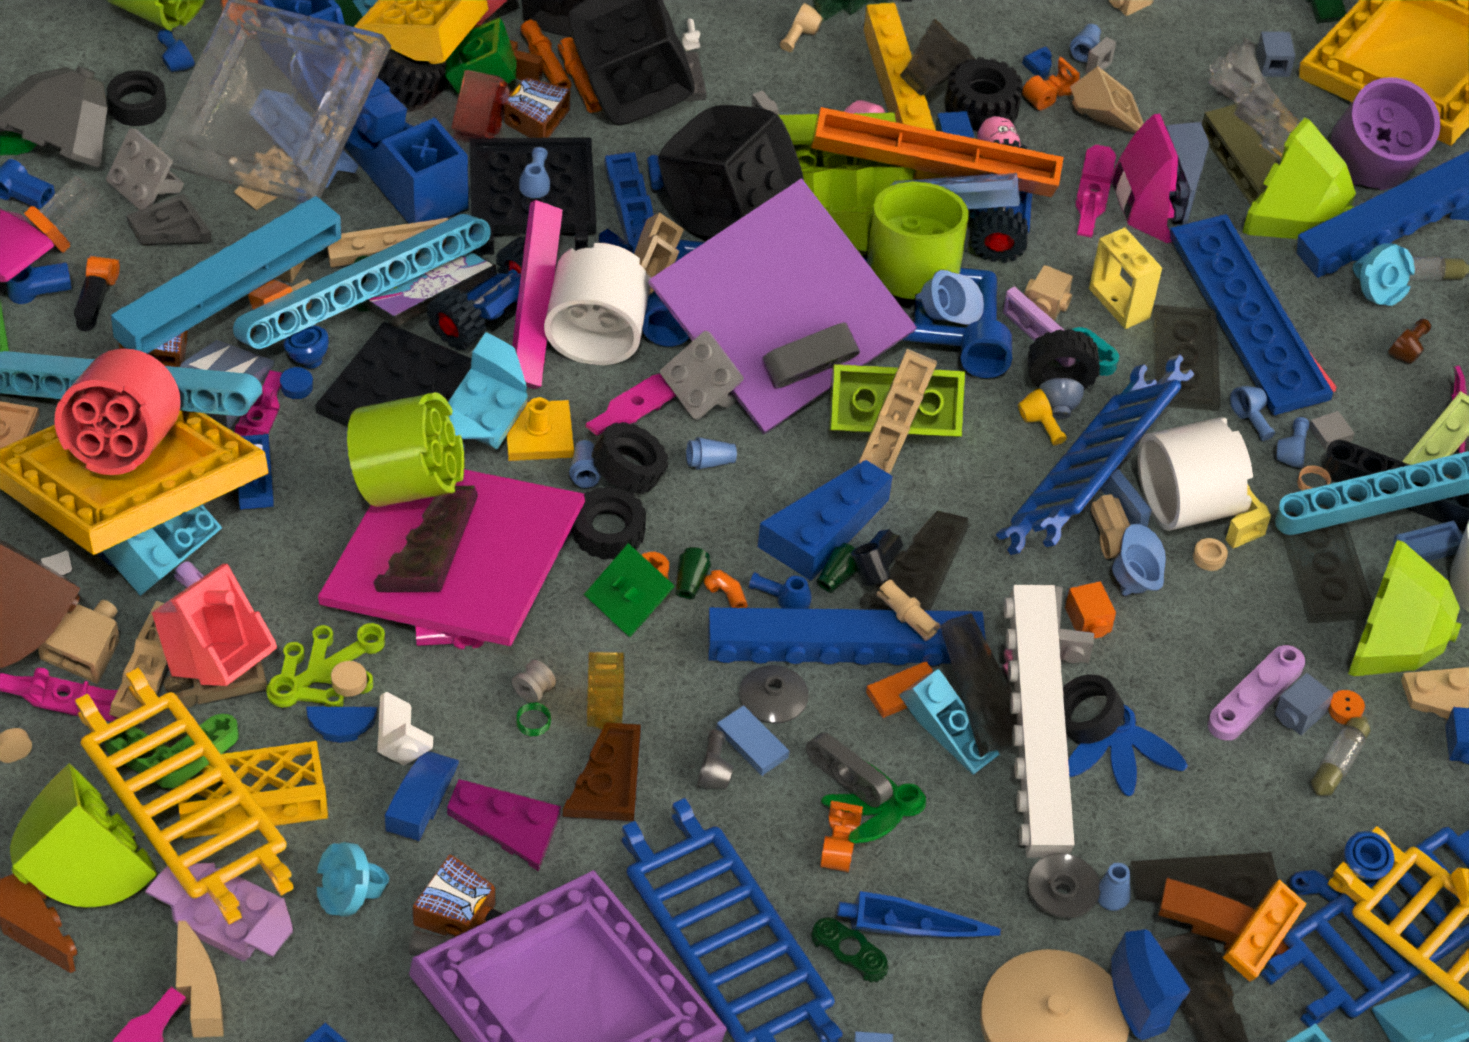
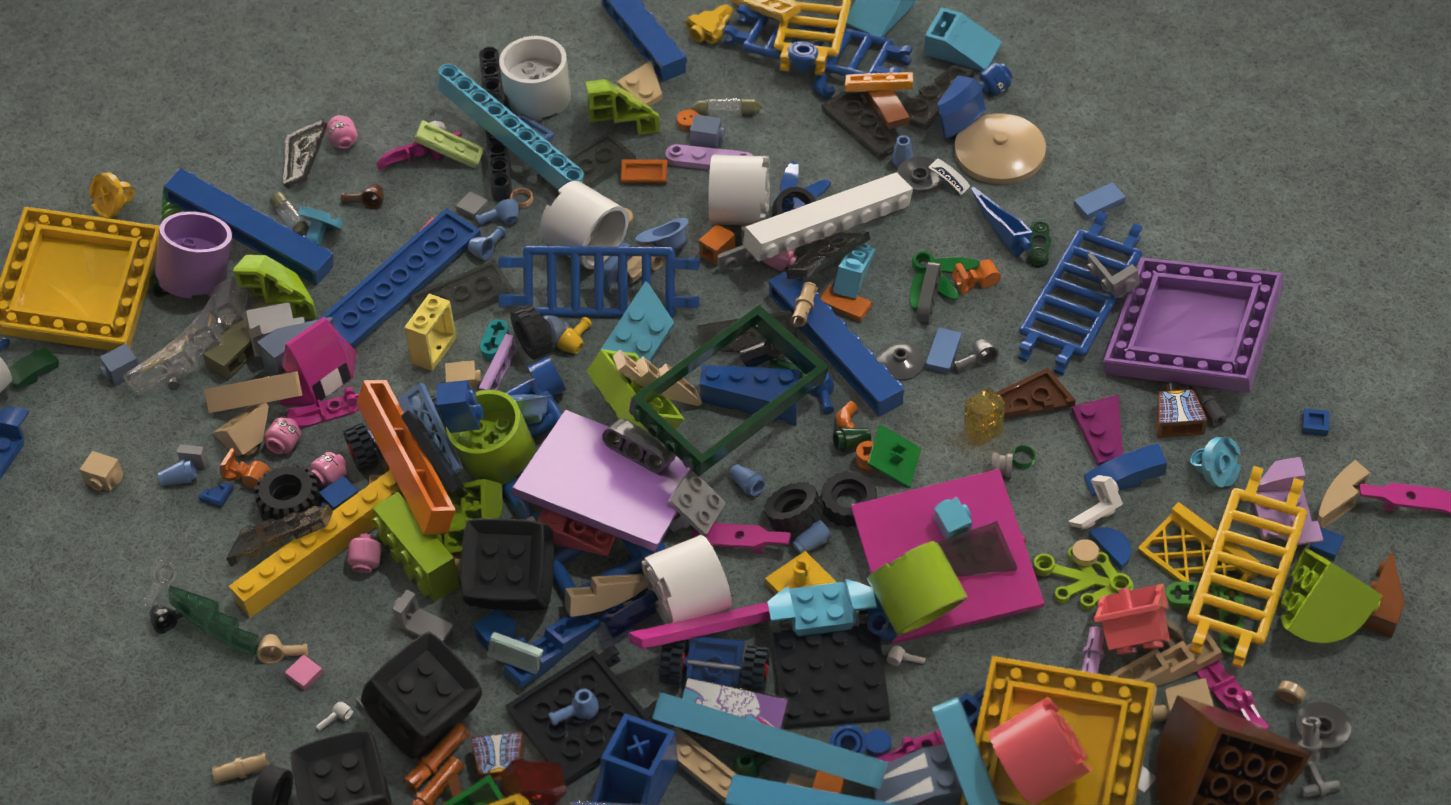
camera: 115 degrees left, 0 degrees up
(154, 928) = (1330, 545): none -> blue tile
(477, 552) = (952, 517): none -> medium azure brick
(636, 154) = (515, 652): none -> light aqua tile
(716, 950) = (1119, 283): none -> light grey bracket
(761, 35) = (304, 672): none -> bright pink tile
(837, 541) = (774, 333): none -> dark green door
(914, 166) = (434, 454): none -> black tile
(938, 173) = (459, 406): none -> blue brick
(1000, 465) = (642, 326): none -> medium azure wing
(1038, 918) = (950, 175): none -> white sticker
(1075, 126) = (282, 435): none -> bright pink head
(1139, 115) = (253, 392): none -> tan slope
(1149, 645) = (738, 189): none -> white brick
(1230, 164) = (266, 320): none -> light grey bracket
(1275, 610) = (644, 171): none -> orange tile

